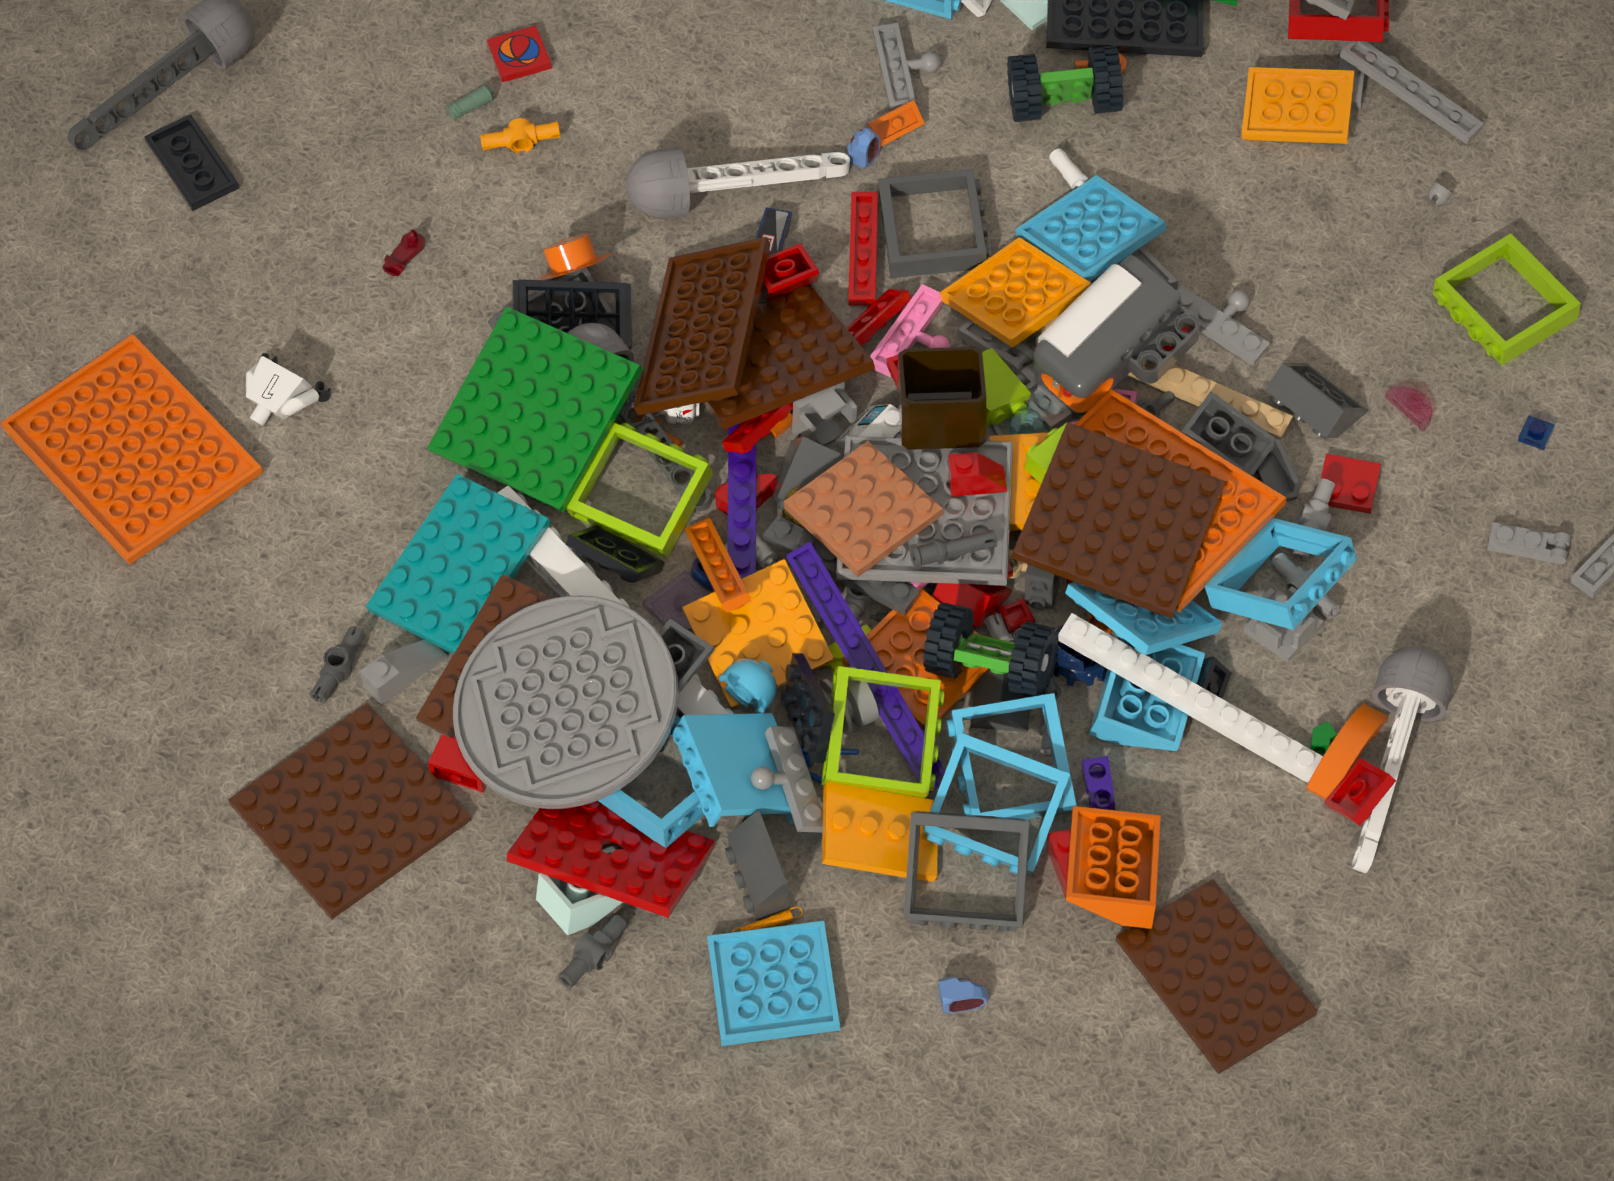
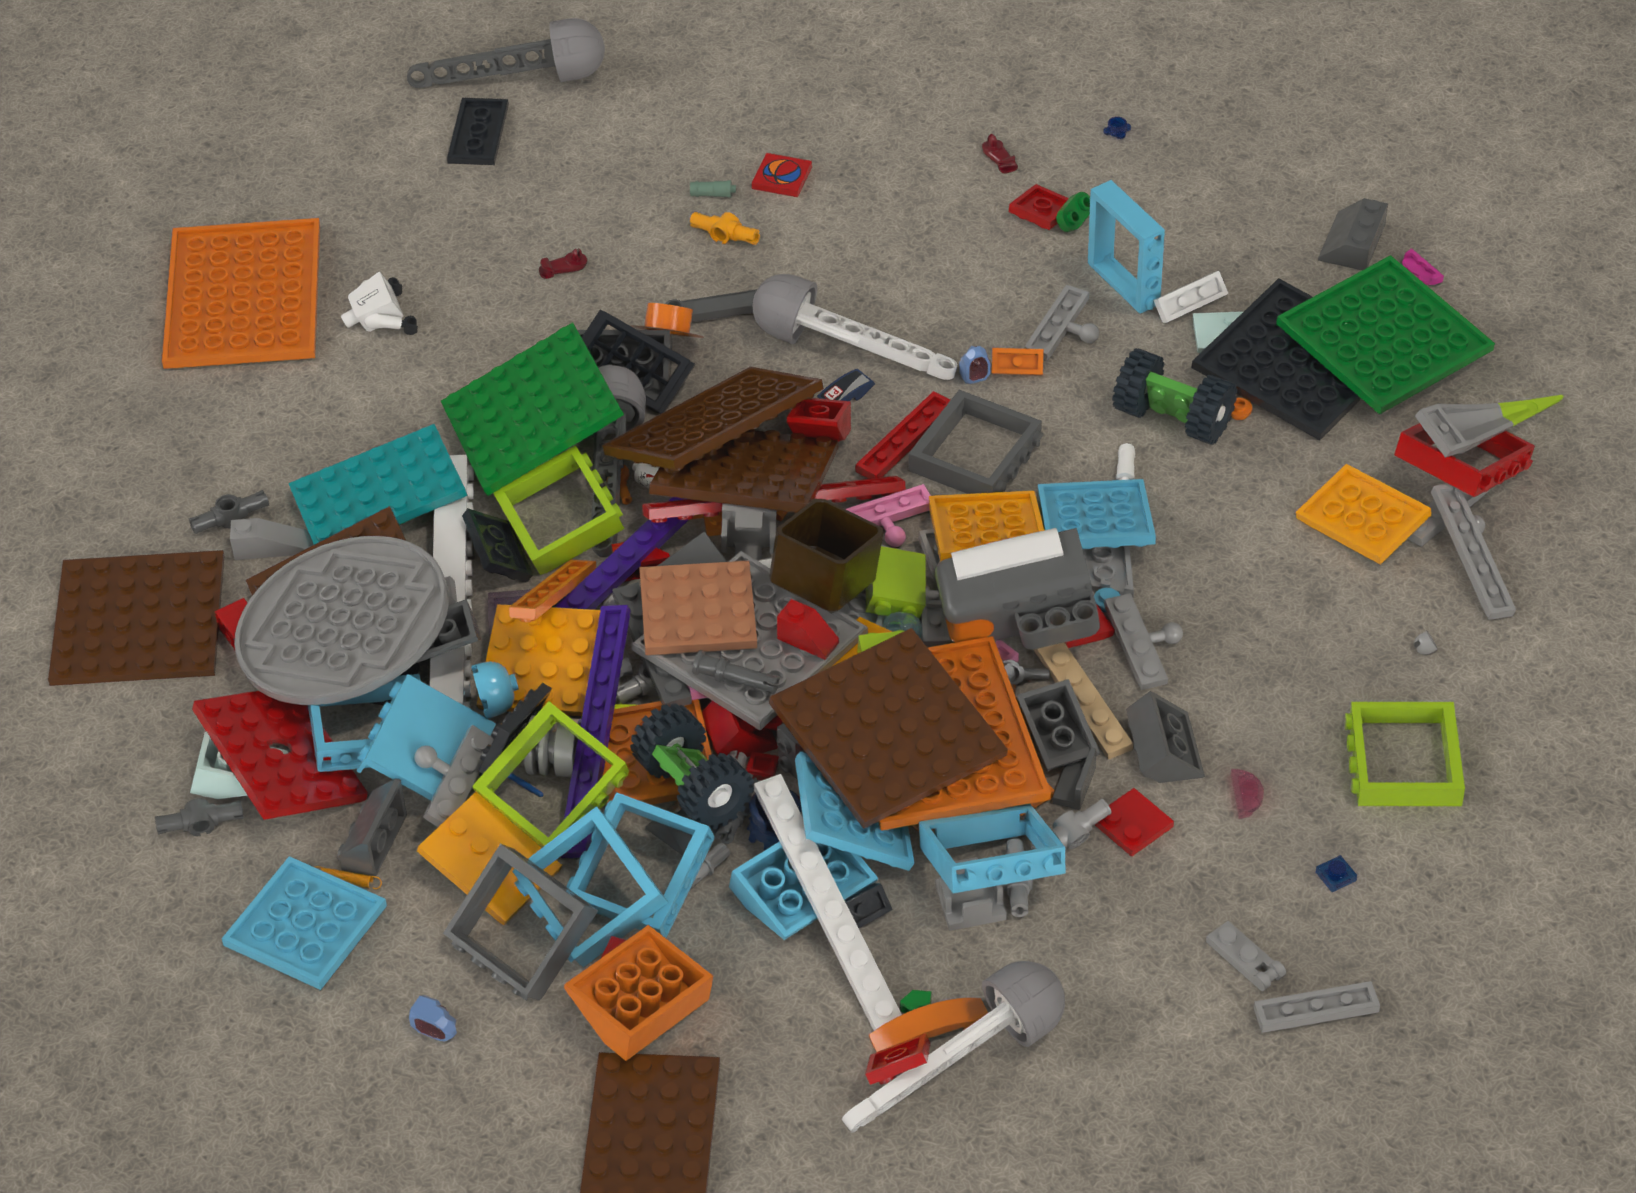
camera: 35 degrees right, 10 degrees down
(591, 210) = (719, 305): none -> dark grey piece
(1098, 783) = (698, 928): dark purple leg -> none

